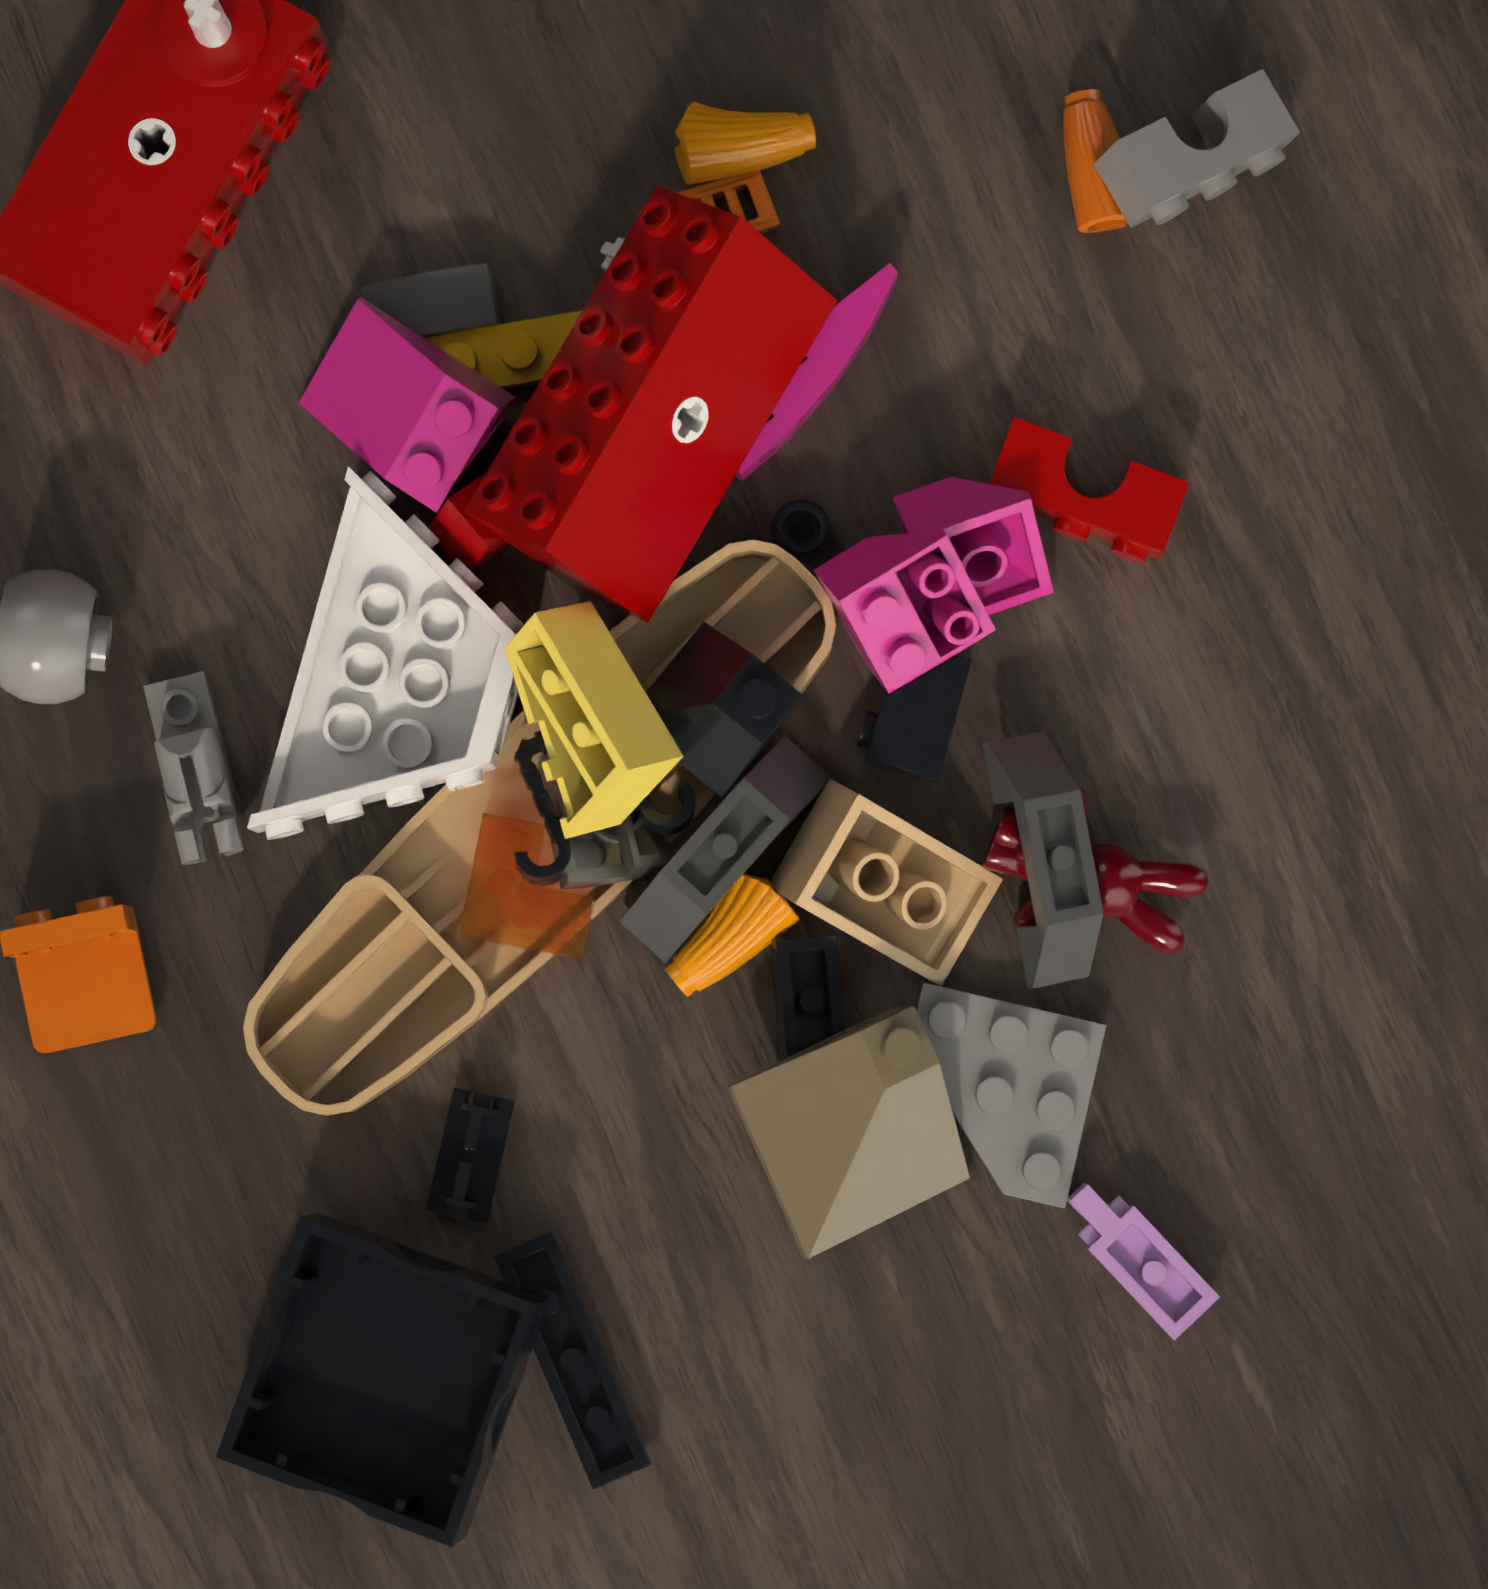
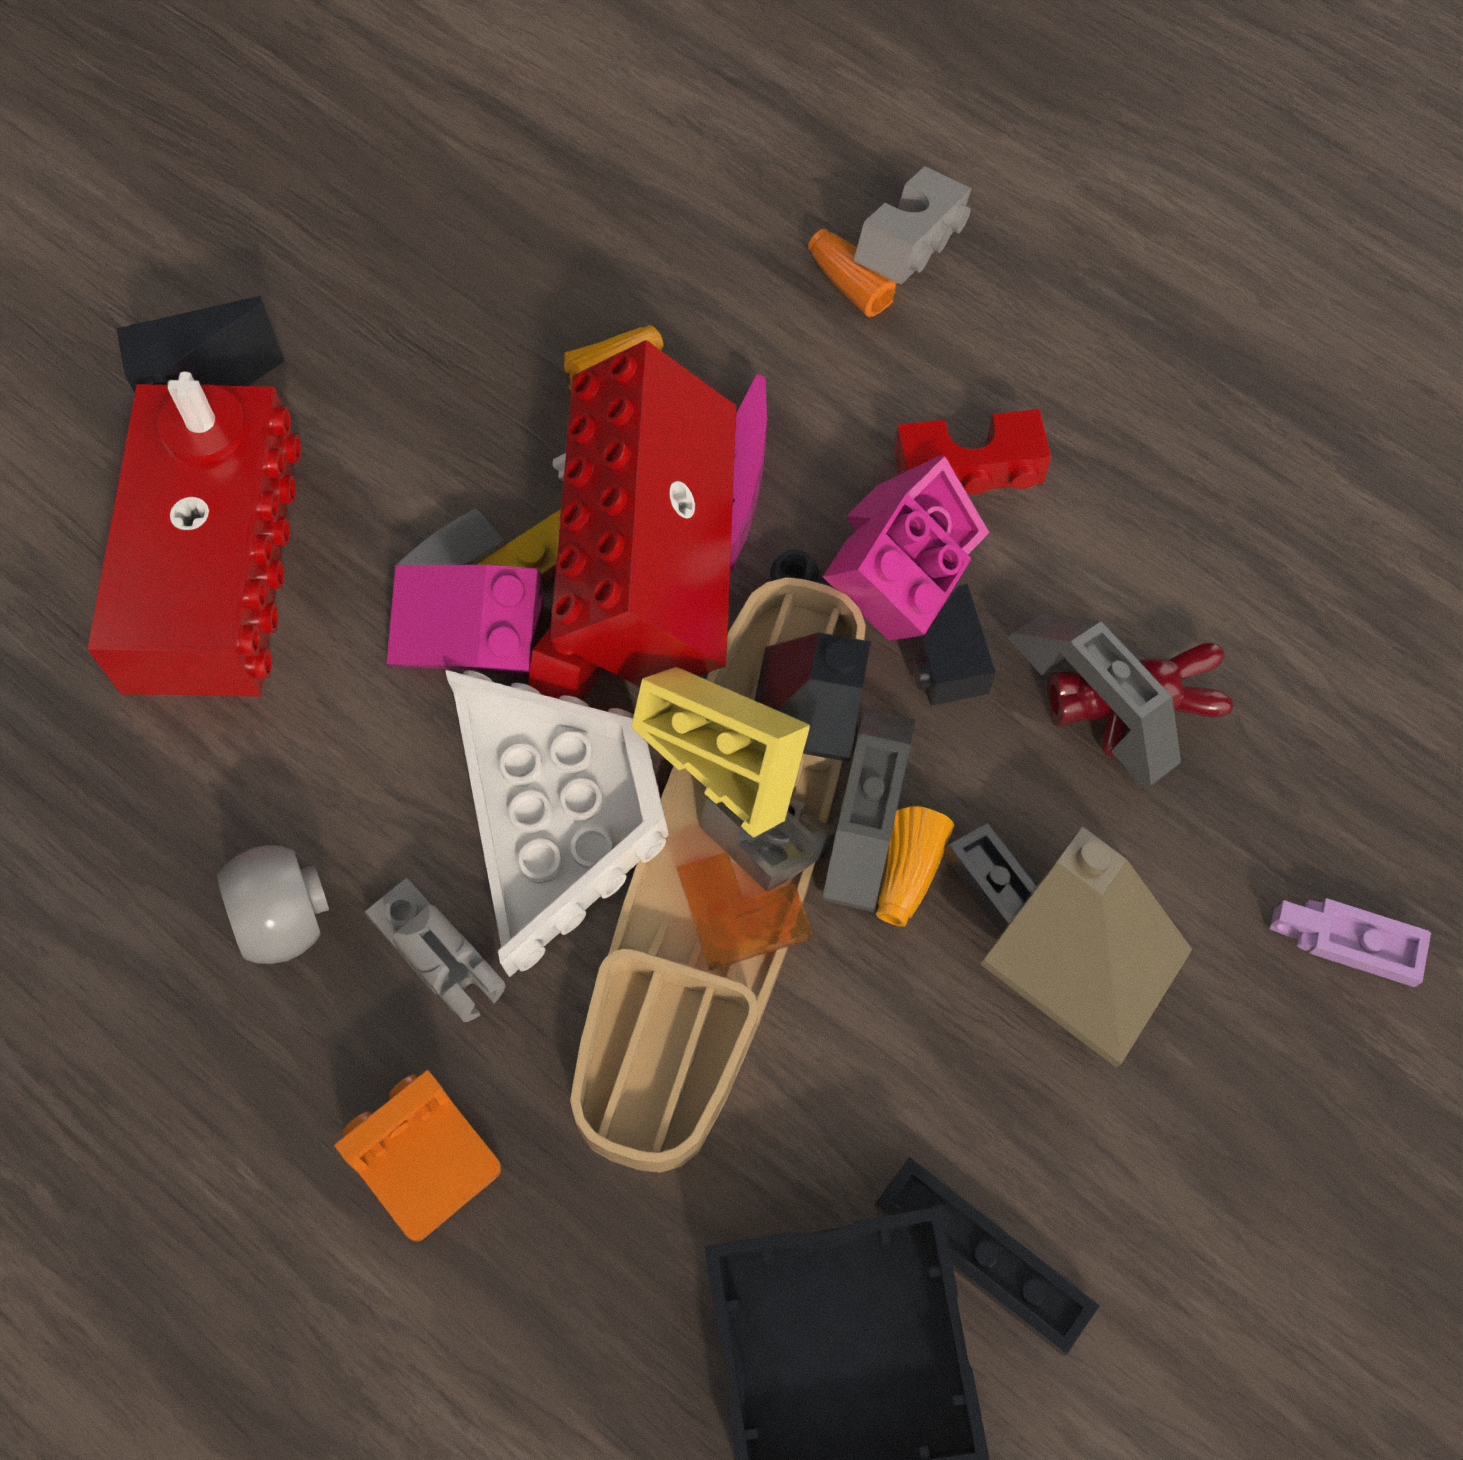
camera: 30 degrees left, 20 degrees down
(470, 1155) = (809, 1135): black hinge -> none
(557, 870) = (753, 876): black piece -> none
(885, 882) = (997, 767): tan slope -> none
(1015, 1085) = (1191, 865): light grey plate -> none

